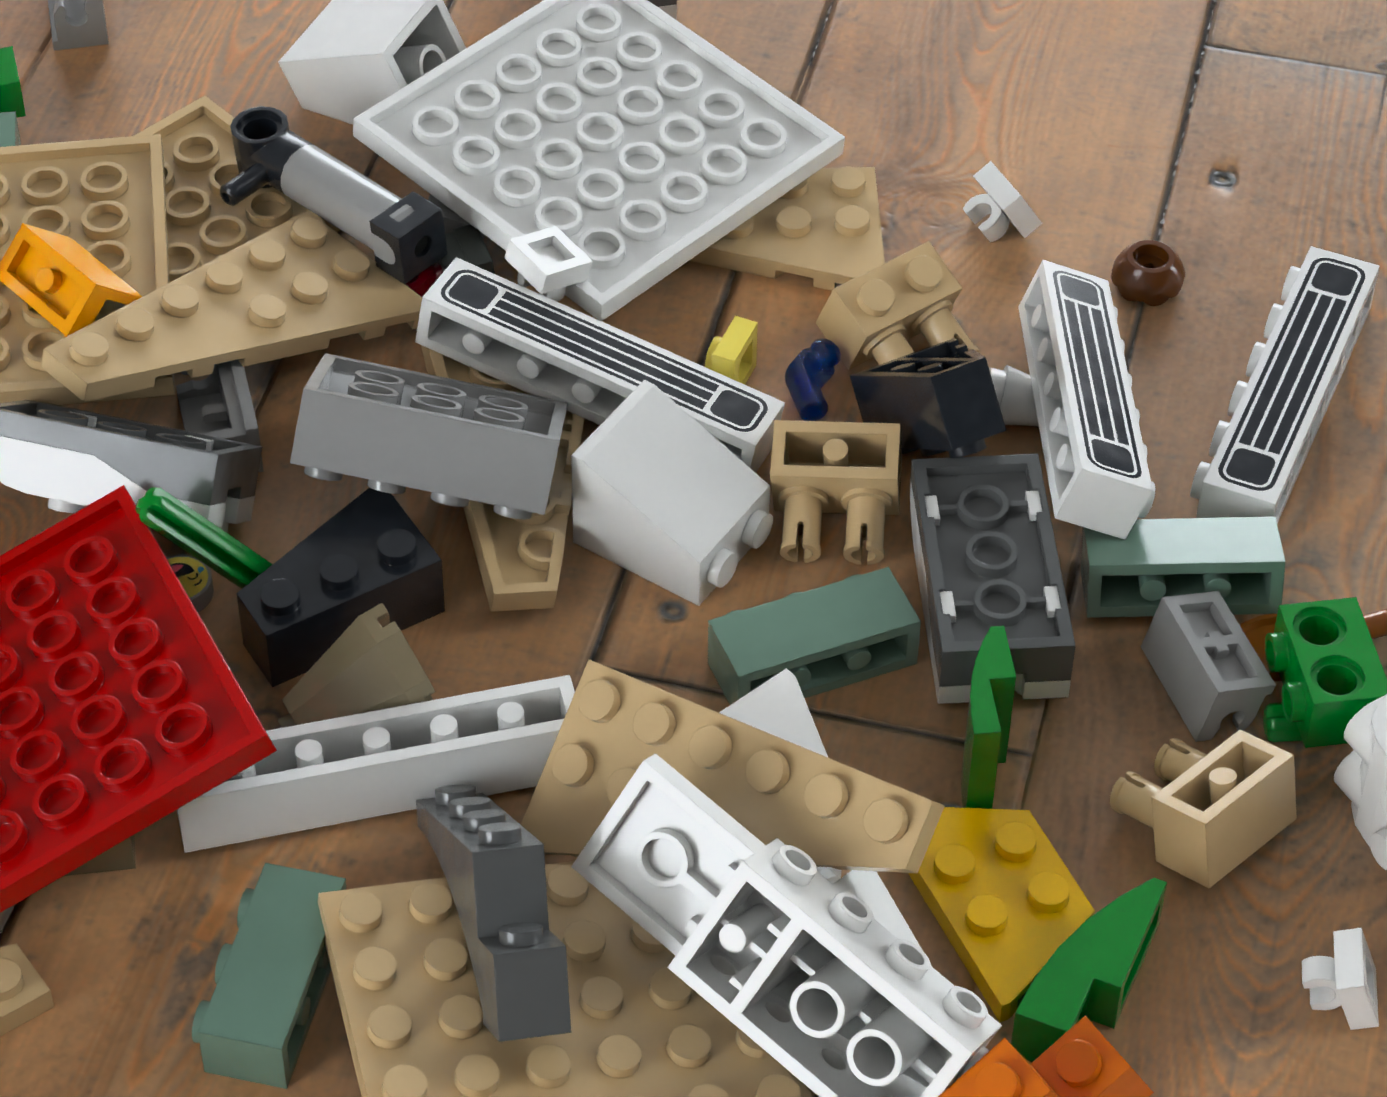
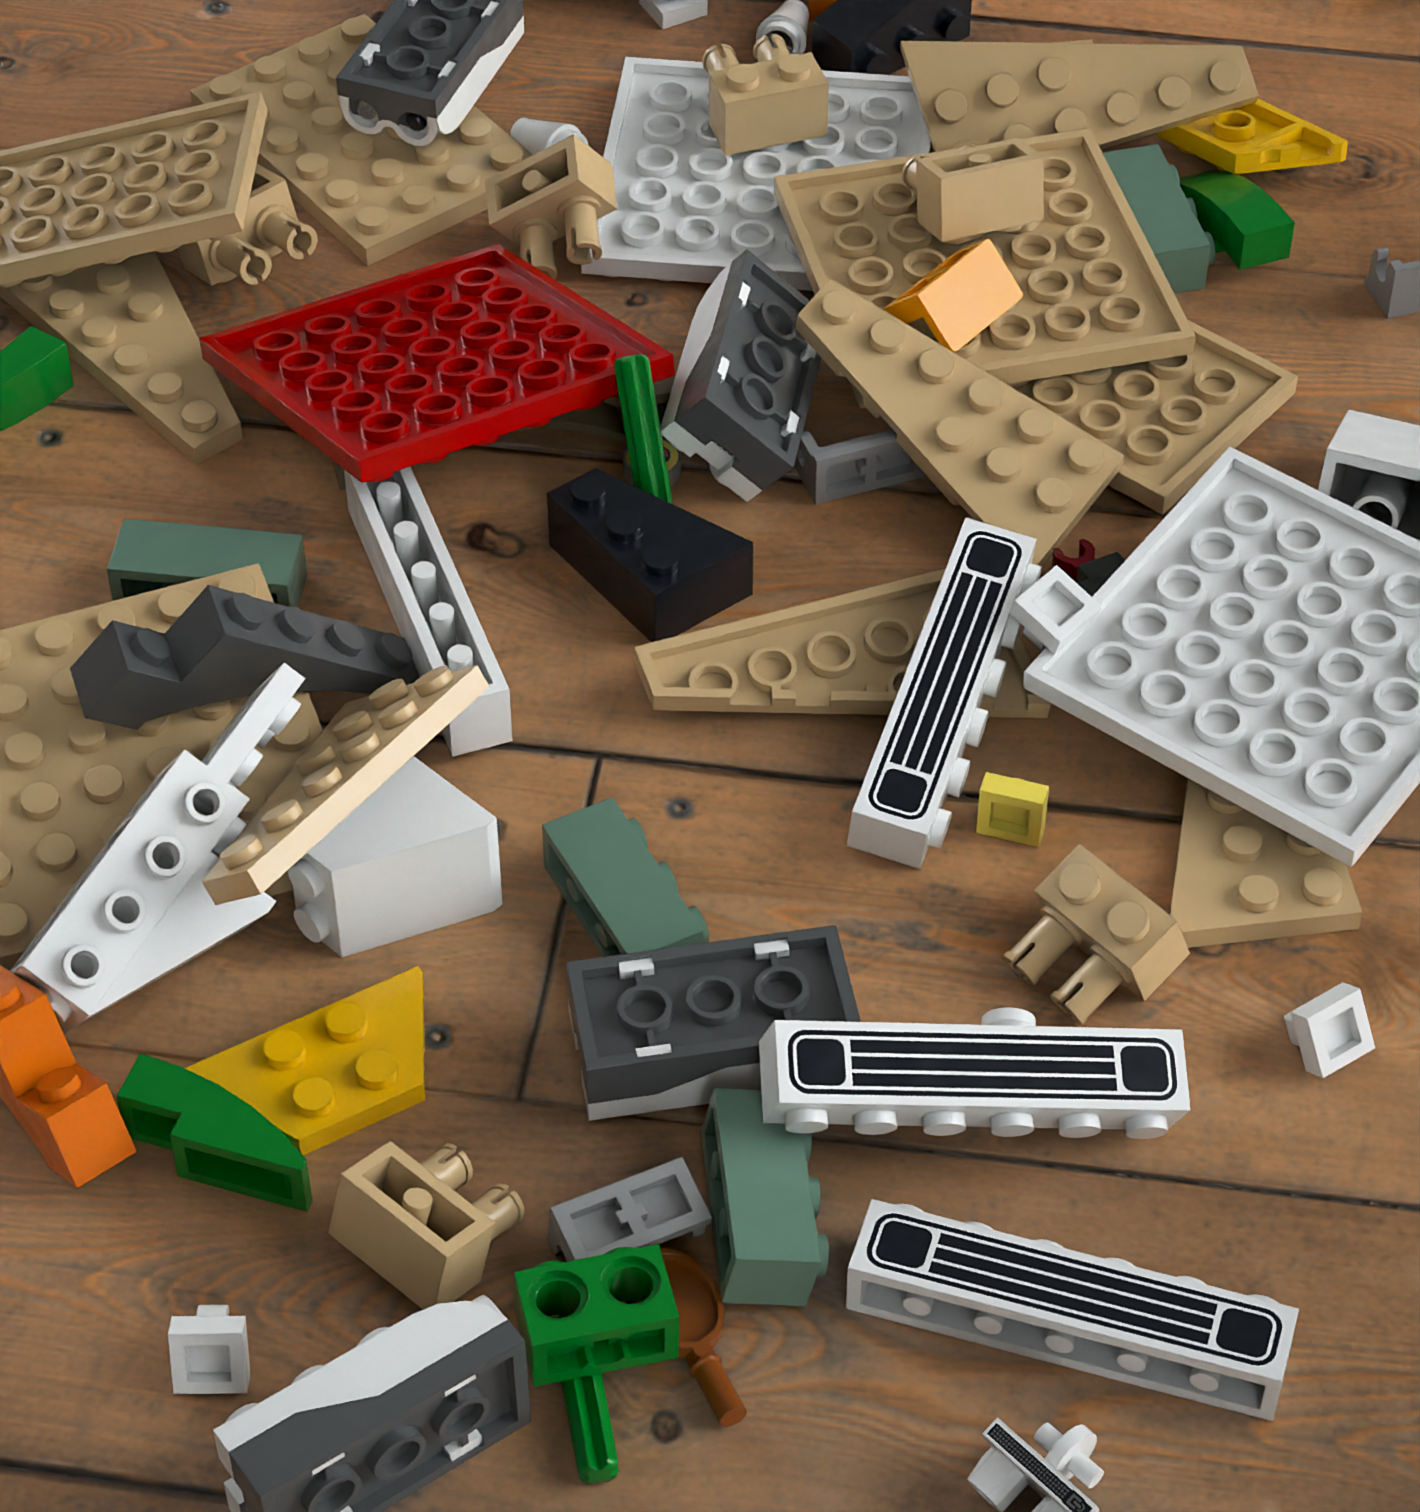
camera: 85 degrees right, 0 degrees up
(360, 673) = (518, 583): dark tan cone -> none
(401, 231) = (1089, 510): piece -> none
(428, 435) = (807, 559): light grey slope -> none
(666, 497) = (784, 757): white slope -> none
(809, 374) = (1010, 878): clear blue arm -> none
(835, 470) = (845, 884): tan brick -> none
(936, 396) = (936, 944): black wedge -> none
(988, 719) = (499, 1012): green slope -> none
(1148, 272) = (1257, 1198): reddish brown plate -> none

